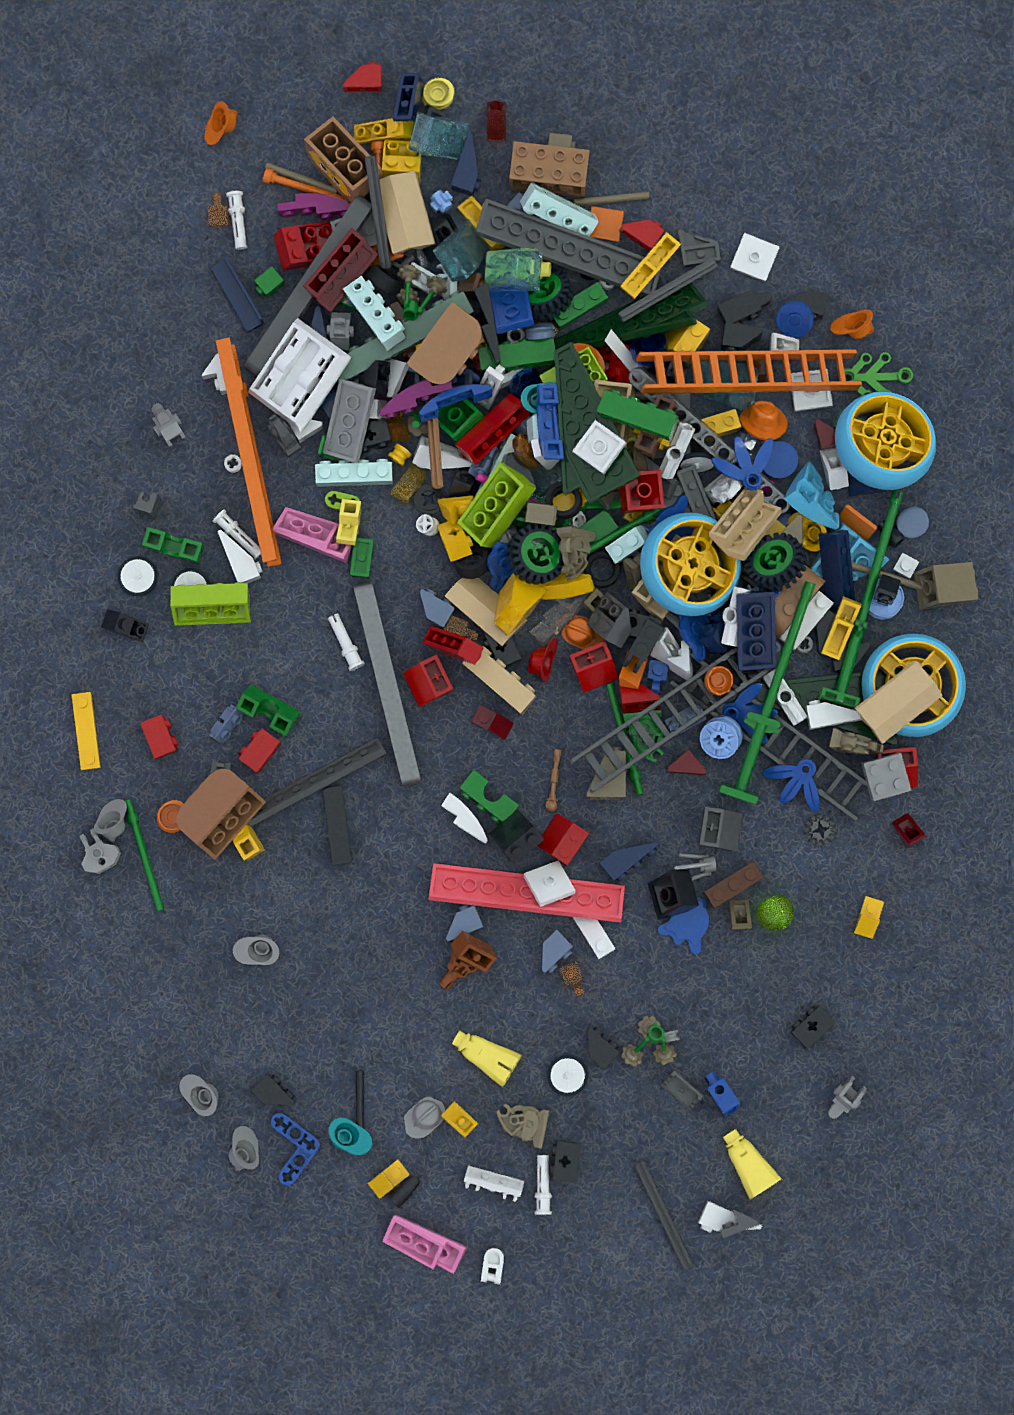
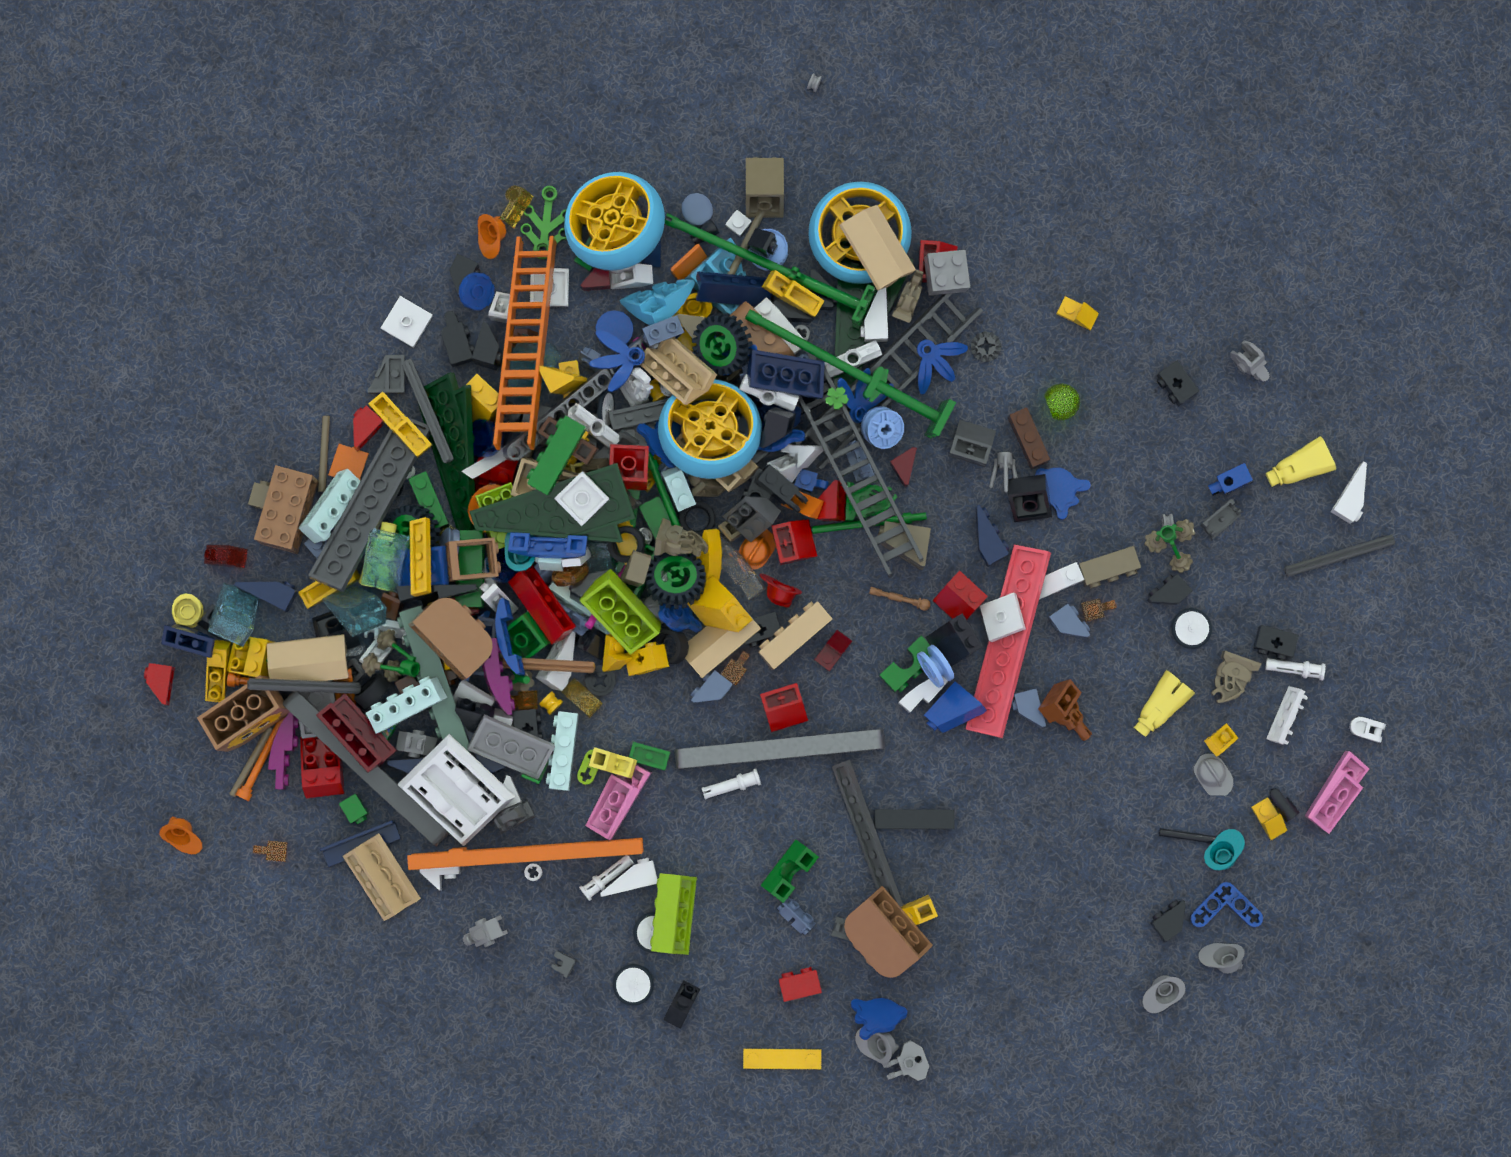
camera: 85 degrees left, 0 degrees up
(133, 820) = (935, 1014): green bar -> none
(139, 816) = (877, 1015): none -> blue tile
(168, 816) = (880, 986): orange piece -> none
(172, 546) = (608, 944): green arch -> none
(207, 318) = (381, 877): none -> tan slope
(236, 211) = (274, 831): white pin -> none
(256, 950) = (1028, 916): light grey piece -> none
(259, 750) = (828, 886): red brick -> none
(424, 521) = (623, 687): white wheel -> none
(441, 201) = (299, 623): light blue gear -> none
(450, 847) = (953, 709): none -> blue slope
(453, 645) = (754, 675): red brick -> none
(489, 821) = (935, 666): none -> light blue wheel
(519, 301) = (420, 557): none -> yellow plate
(520, 333) = (453, 563): none -> medium nougat window
(616, 984) = (1109, 567): none -> dark tan brick
(704, 629) = (777, 425): none -> black slope
(716, 410) = (560, 381): none -> yellow slope
(718, 680) = (829, 419): orange hair -> none
(740, 684) = (836, 397): none -> bright green plant
(740, 914) = (1059, 436): dark tan slope -> none
(743, 1223) = (1360, 478): dark grey slope -> none
(764, 420) = (574, 337): orange hat -> none
(781, 503) = (662, 330): none -> sand blue hinge
(888, 345) = (518, 202): none -> clear yellow plate
(908, 830) = (999, 261): dark red slope -> none

